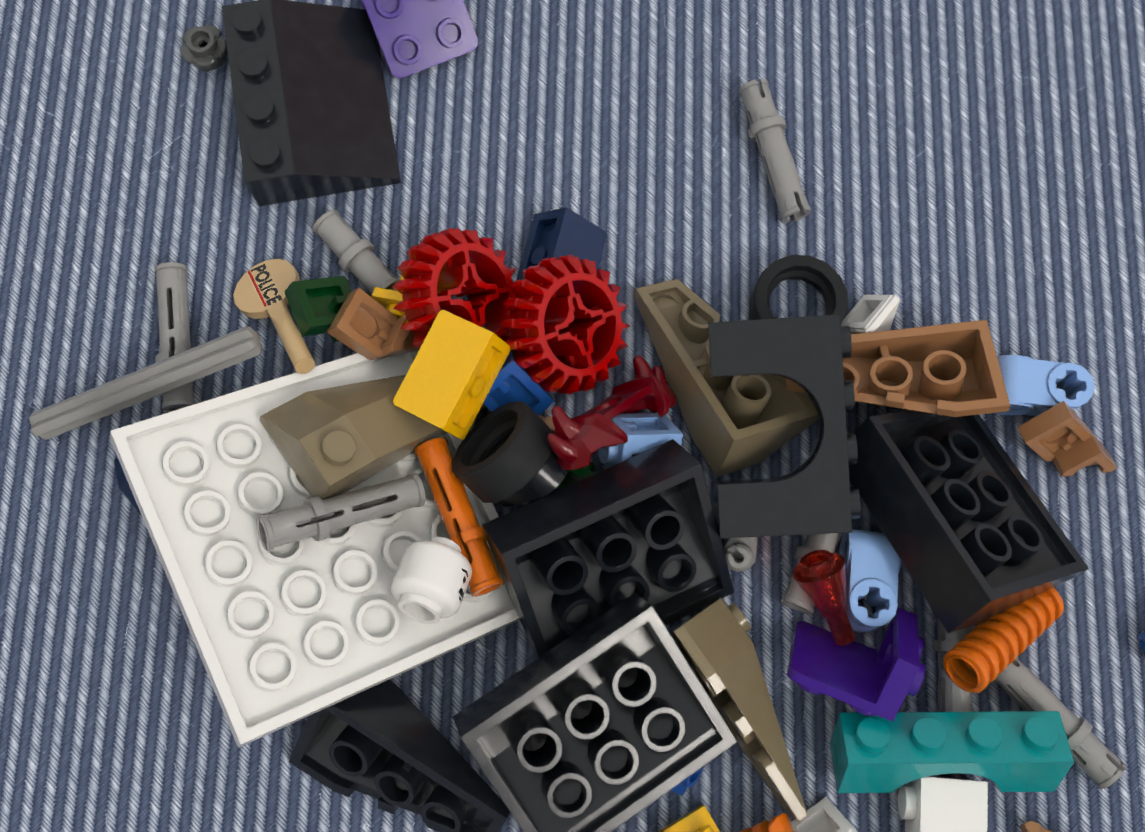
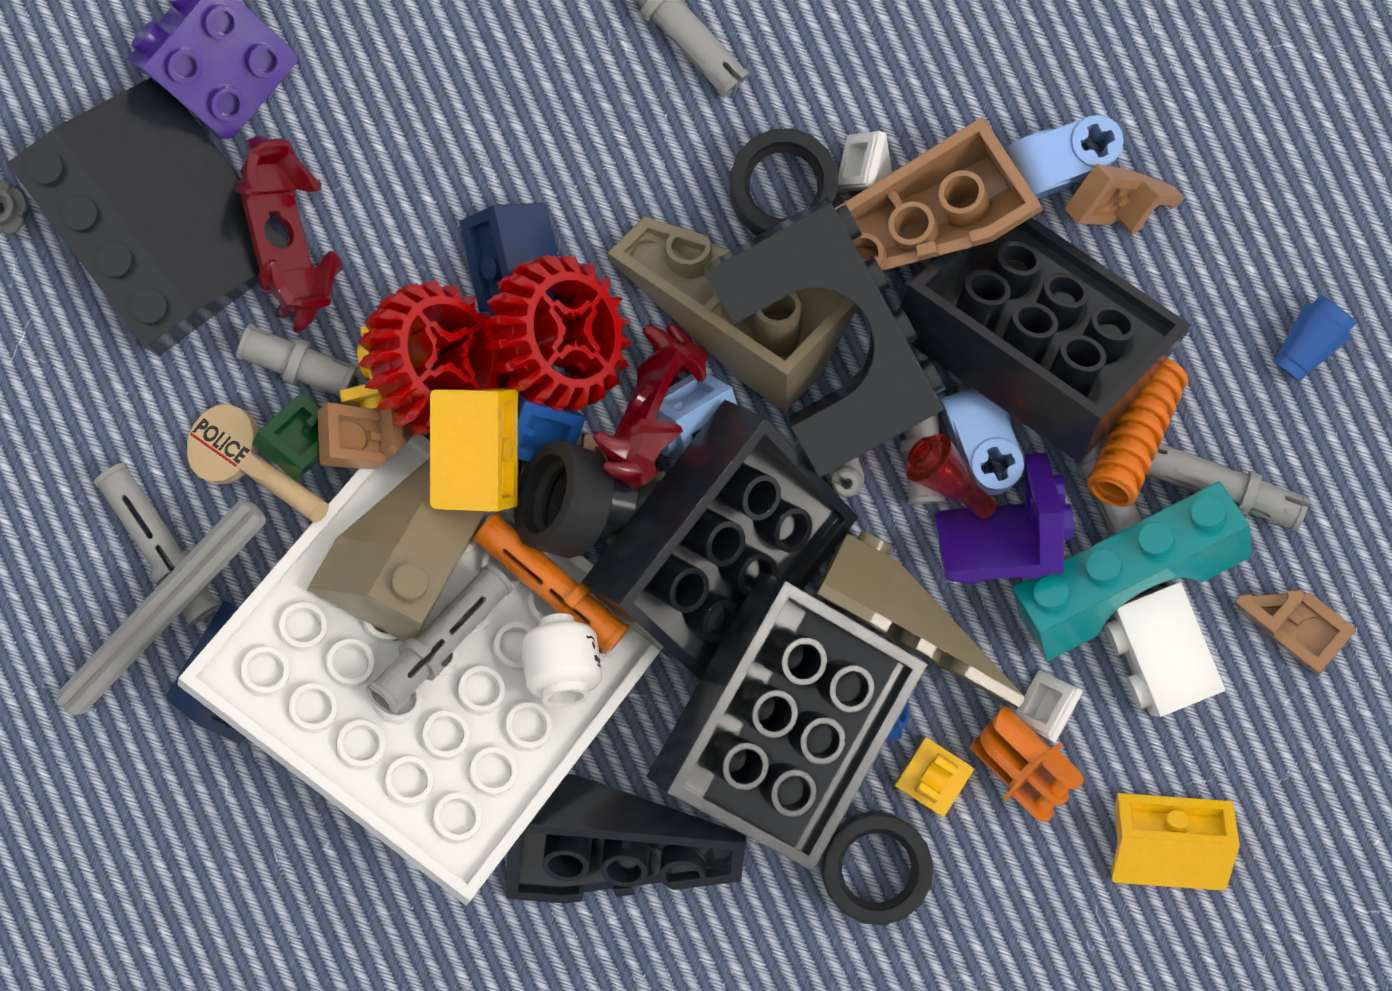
camera: 30 degrees left, 10 degrees up
(406, 119) = (269, 187): none -> dark red piece

